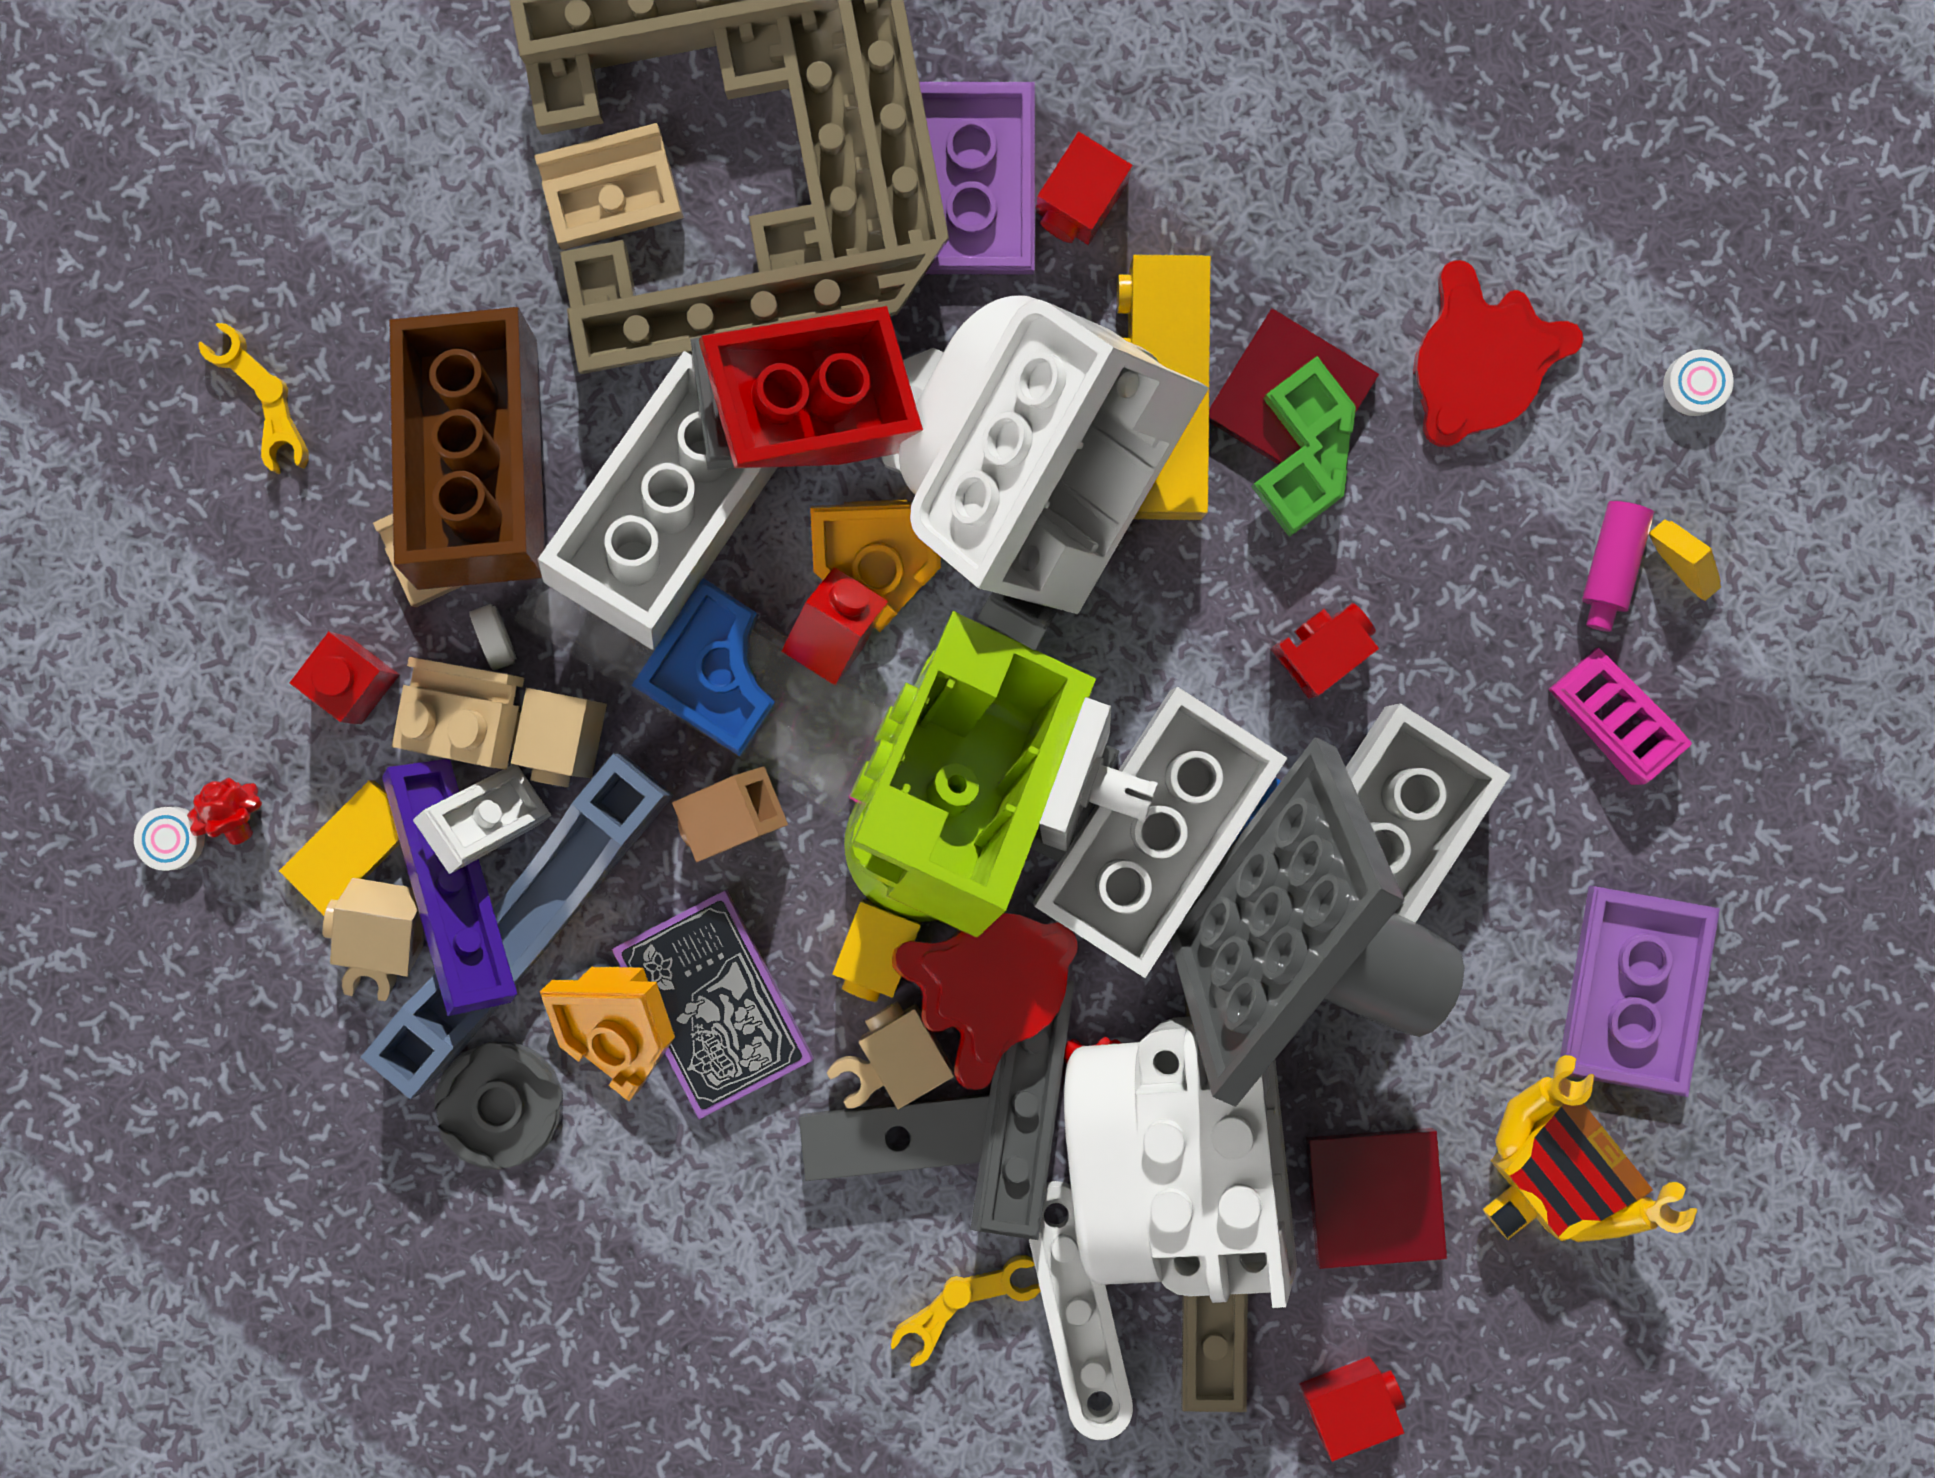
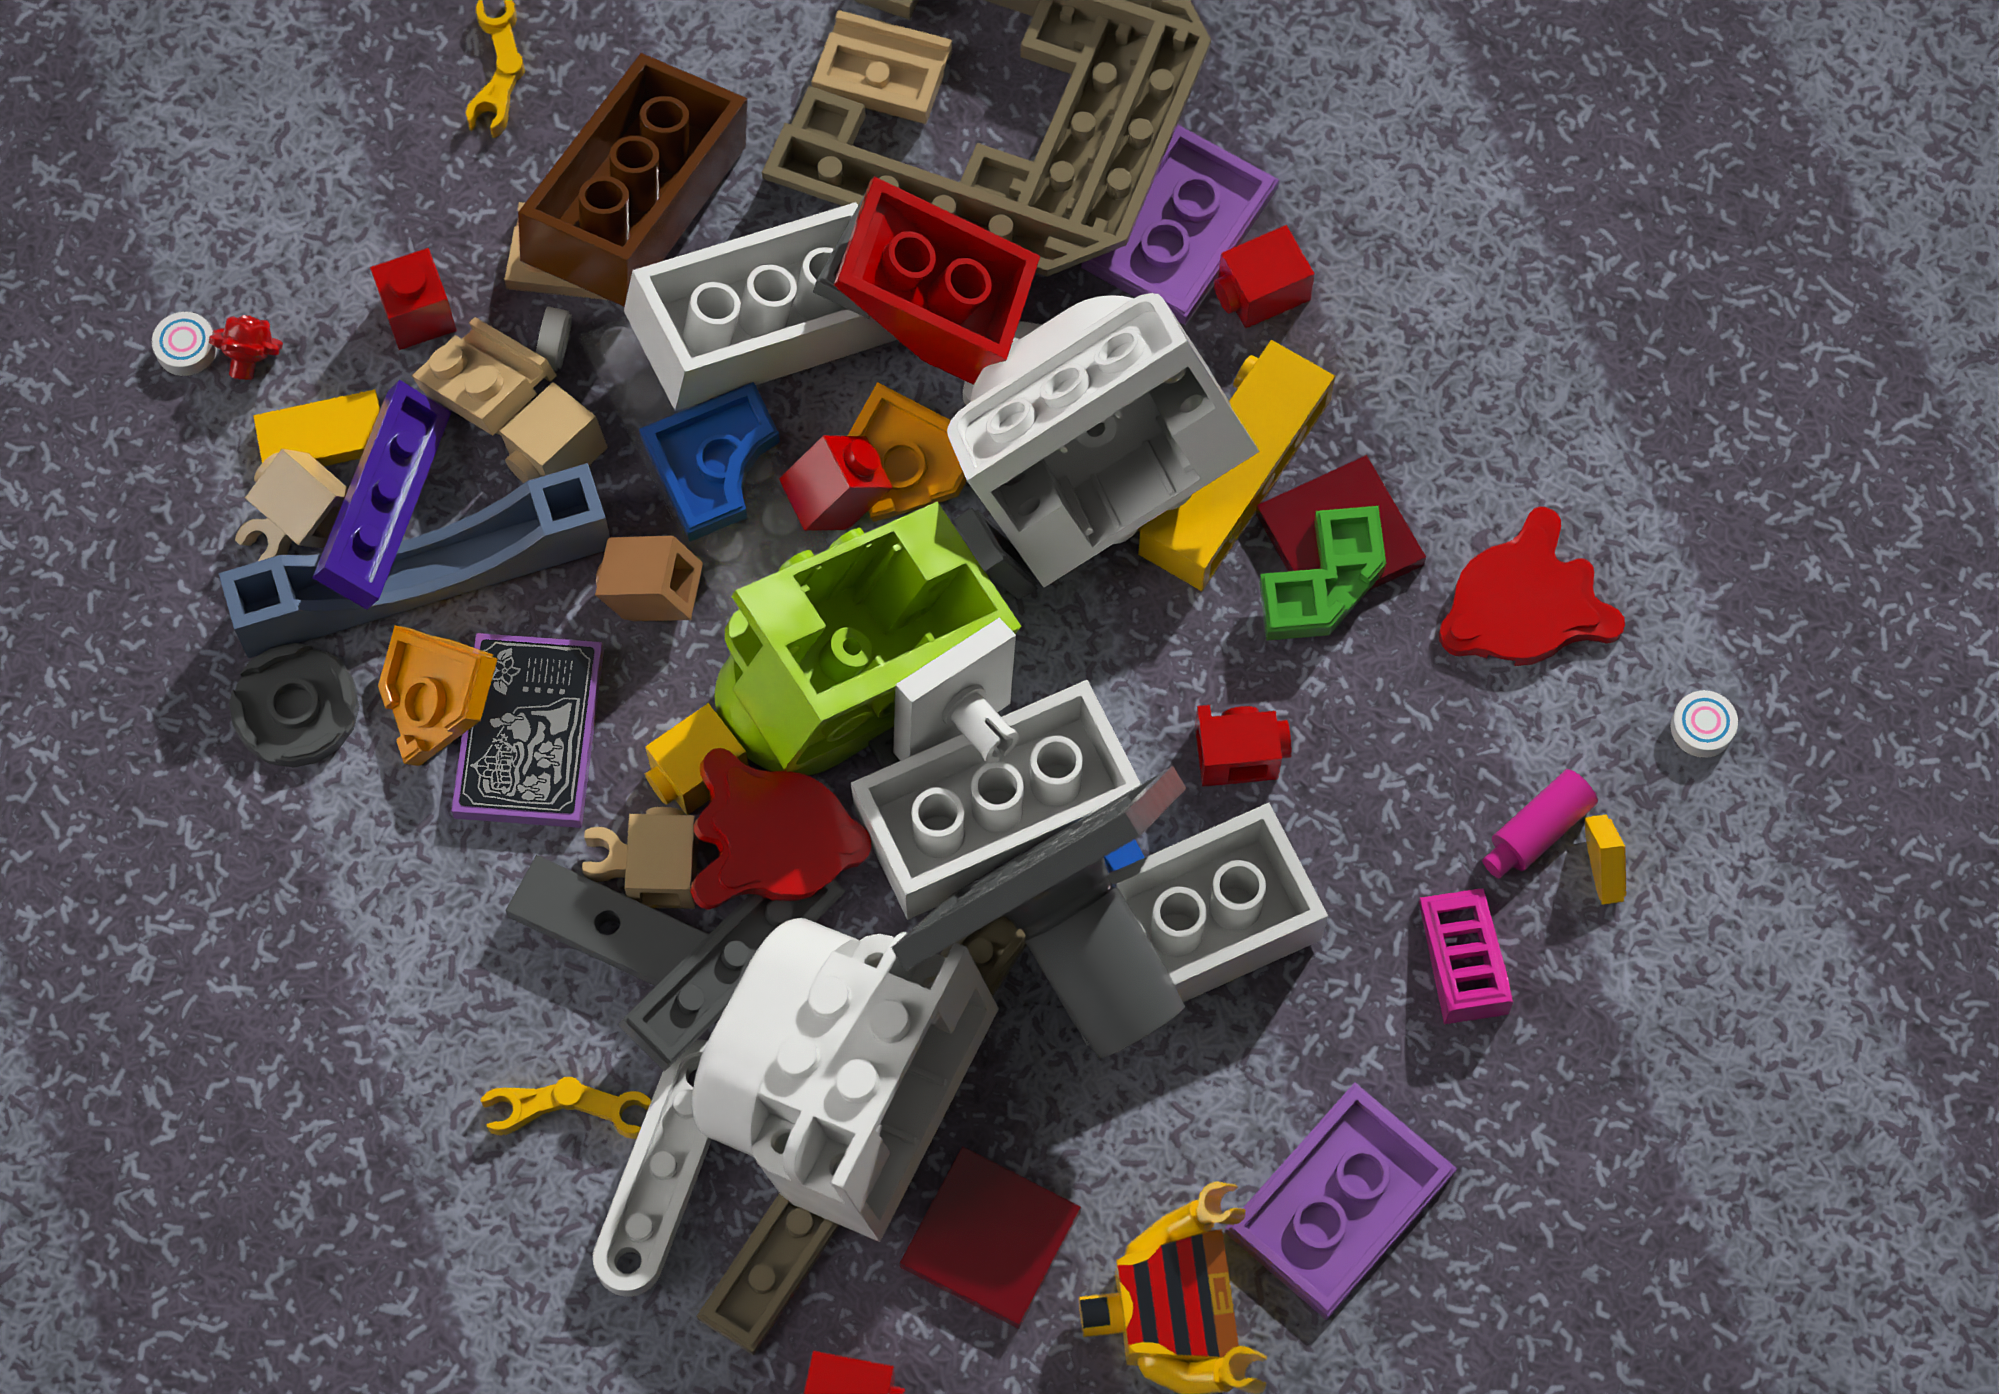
camera: 30 degrees right, 20 degrees down
(481, 818) = (446, 460): white plate -> none

